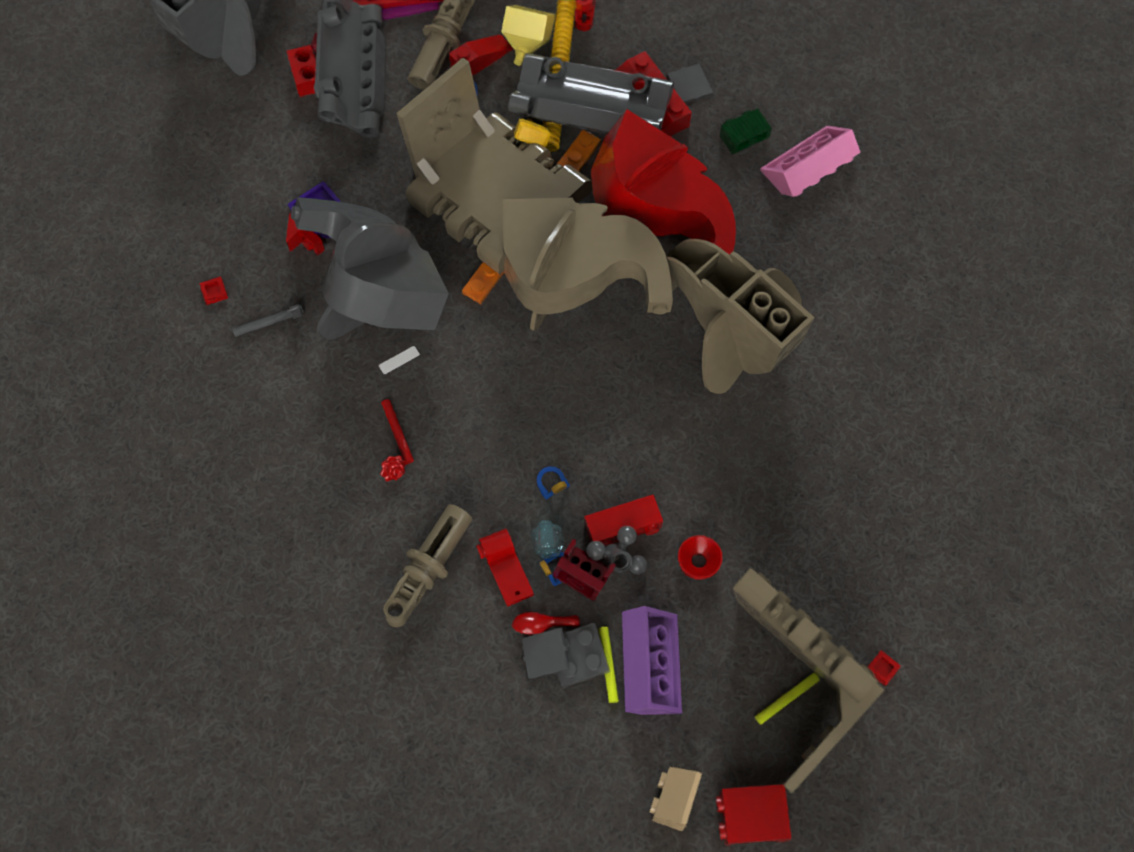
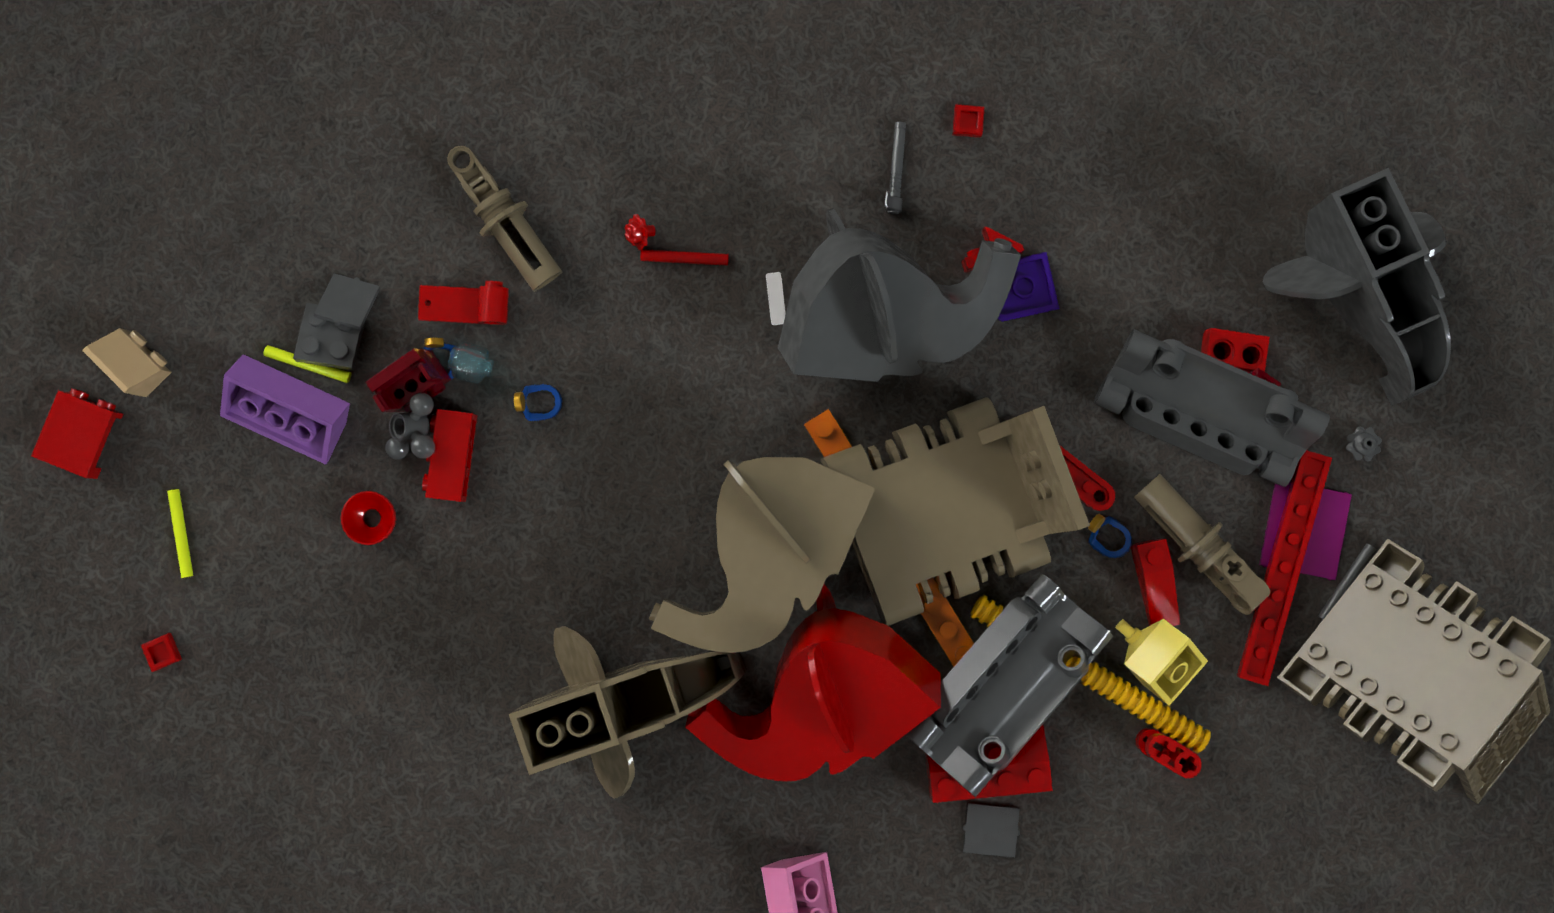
camera: 115 degrees right, 20 degrees up
(531, 132) = (993, 586): yellow piece -> none
(535, 623) = (384, 307): red piece -> none
(745, 131) = (883, 860): dark green brick -> none
(852, 682) = (166, 568): dark tan bracket -> none

